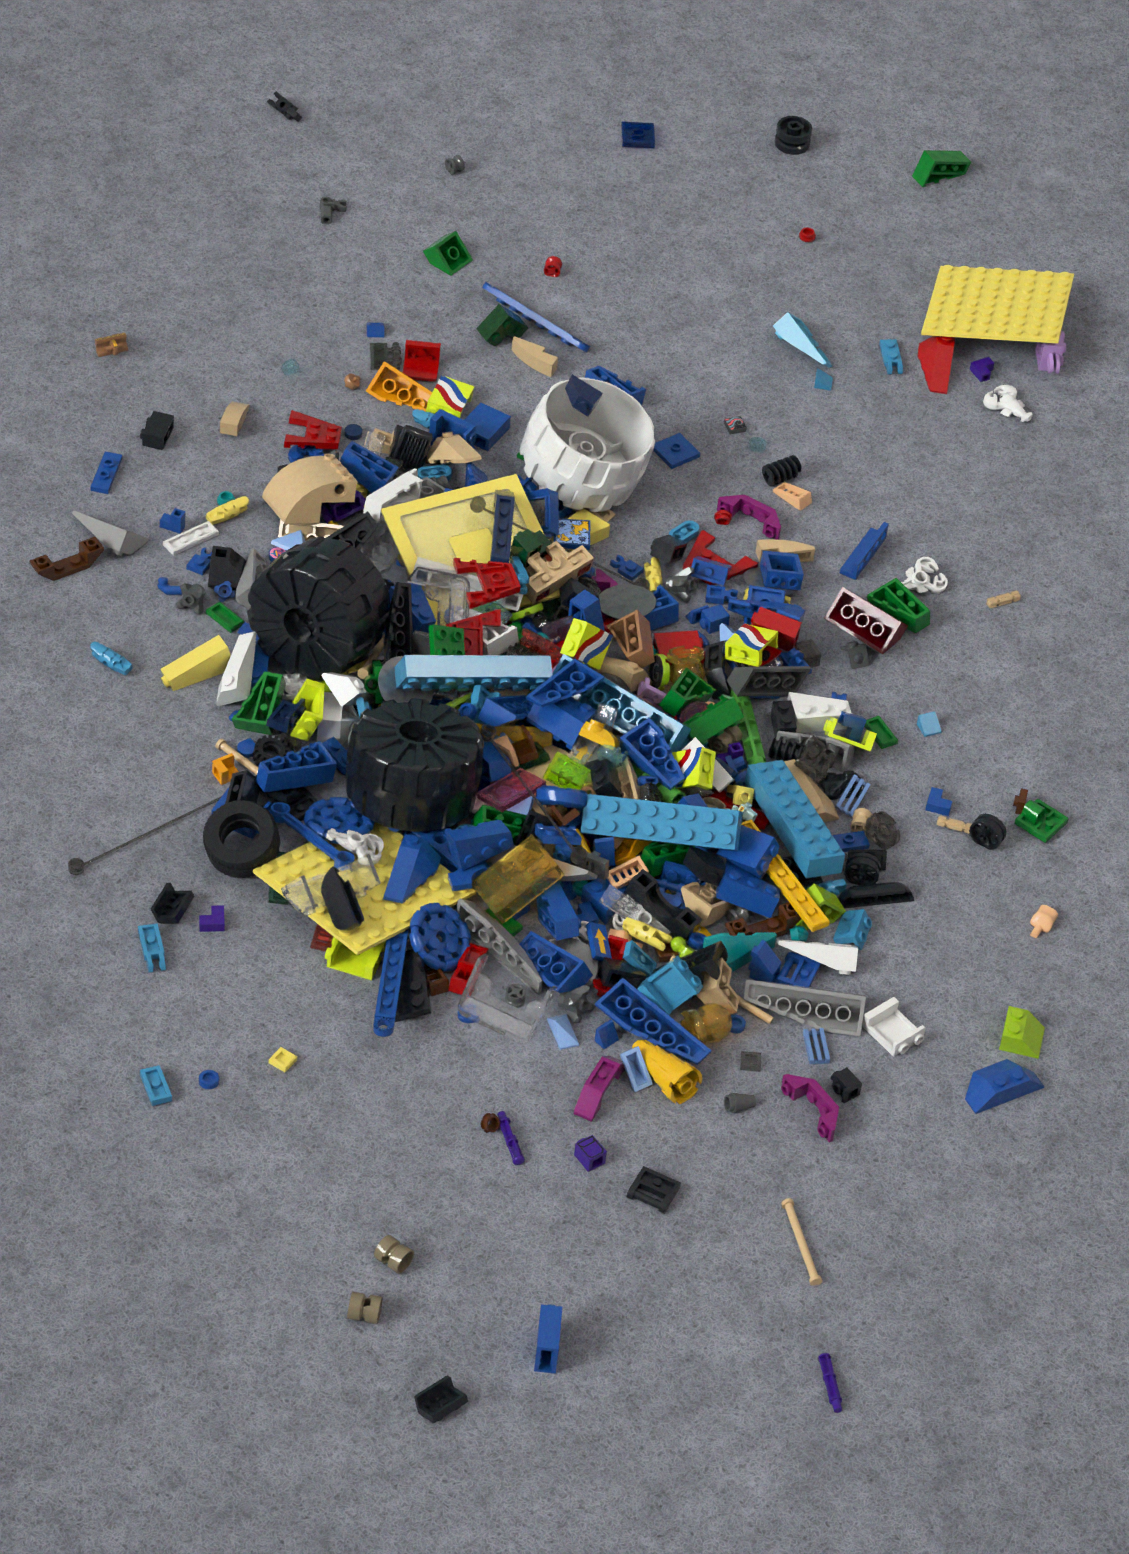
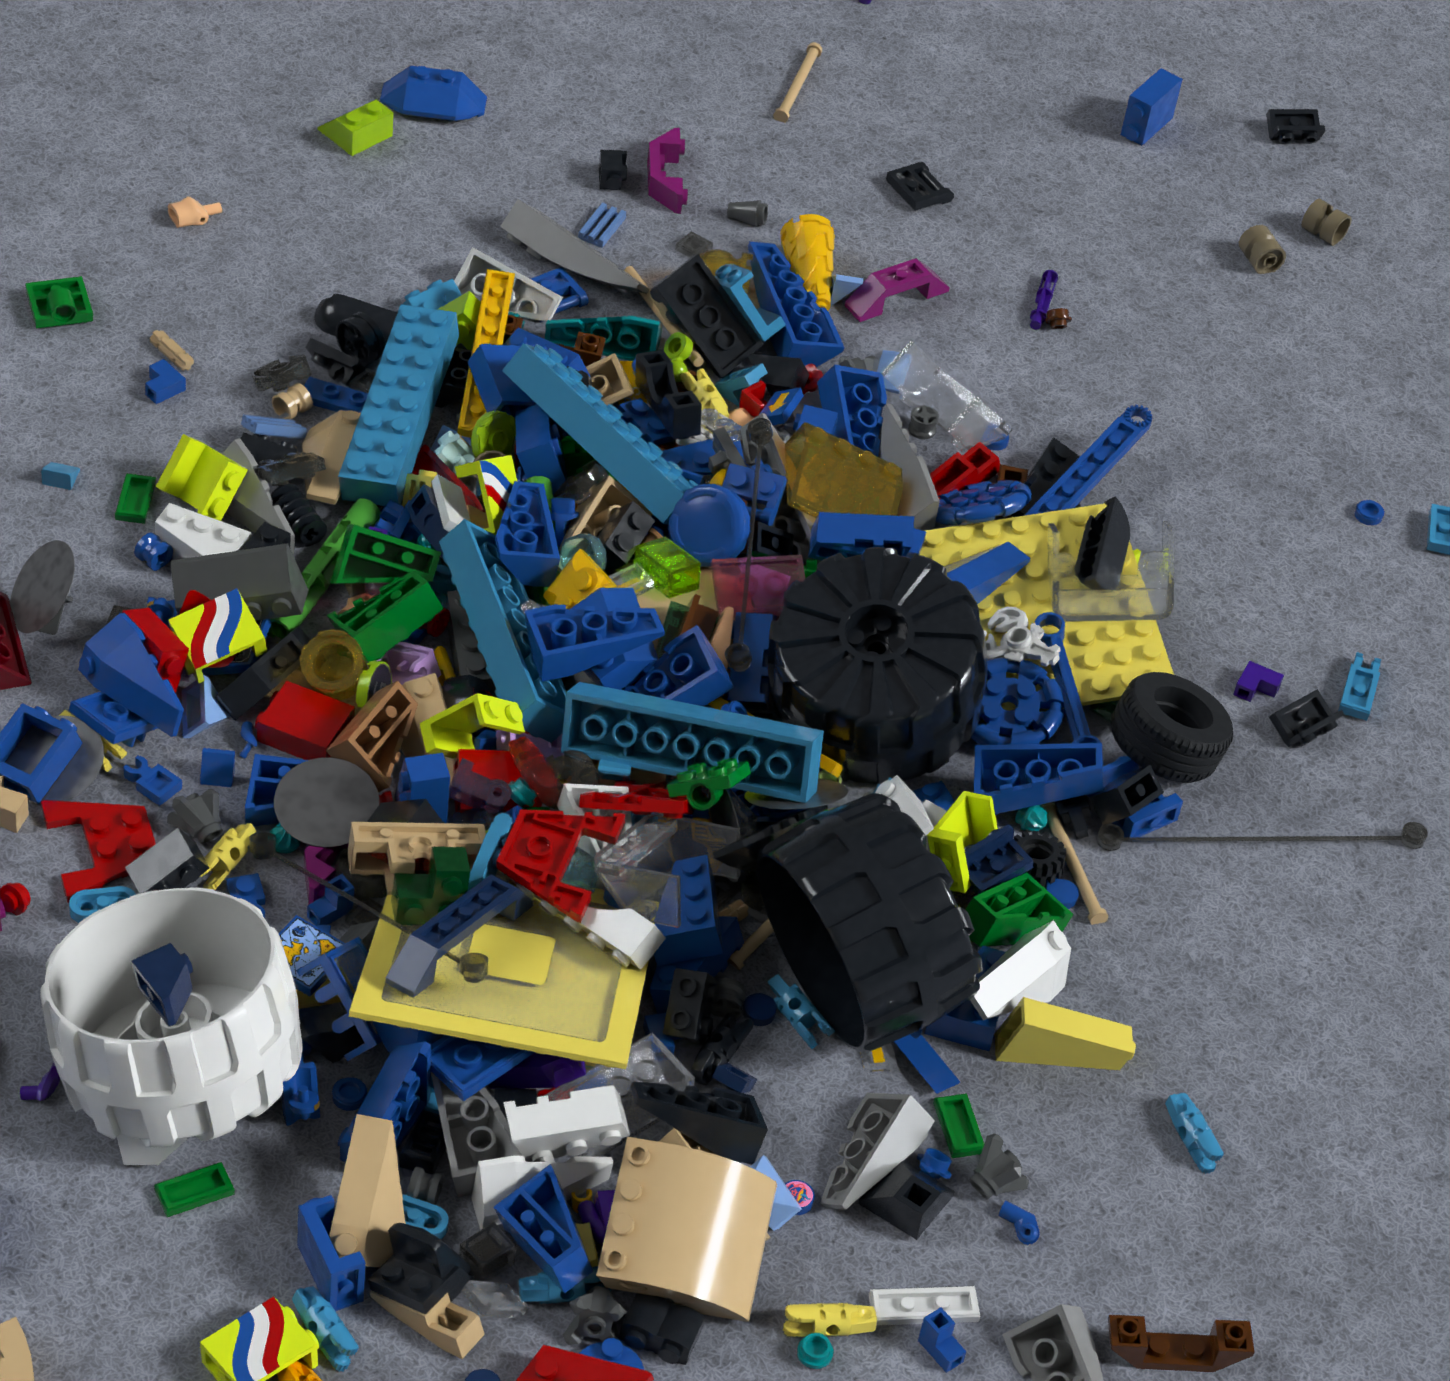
camera: 150 degrees left, 0 degrees up
(199, 563) = (936, 1245): blue plate -> none
(224, 768) = (1118, 874): light orange panel -> none
(282, 1059) = (1262, 492): light yellow tile -> none
(489, 425) = (245, 1266): blue brick -> none
(590, 1153) = (966, 239): dark purple brick -> none
(606, 1034) = (850, 337): blue slope -> none
(629, 865) = (682, 442): light nougat slope -> none
(710, 570) = (131, 809): blue panel -> none
(713, 617) = (199, 736): blue brick -> none
(764, 964) = (592, 301): blue slope -> none
(854, 724) = (178, 495): blue piece -> none
(892, 1028) = (493, 190): white panel -> none
(986, 832) = (152, 306): black wheel -> none
(1019, 801) = (59, 327): reddish brown plate -> none

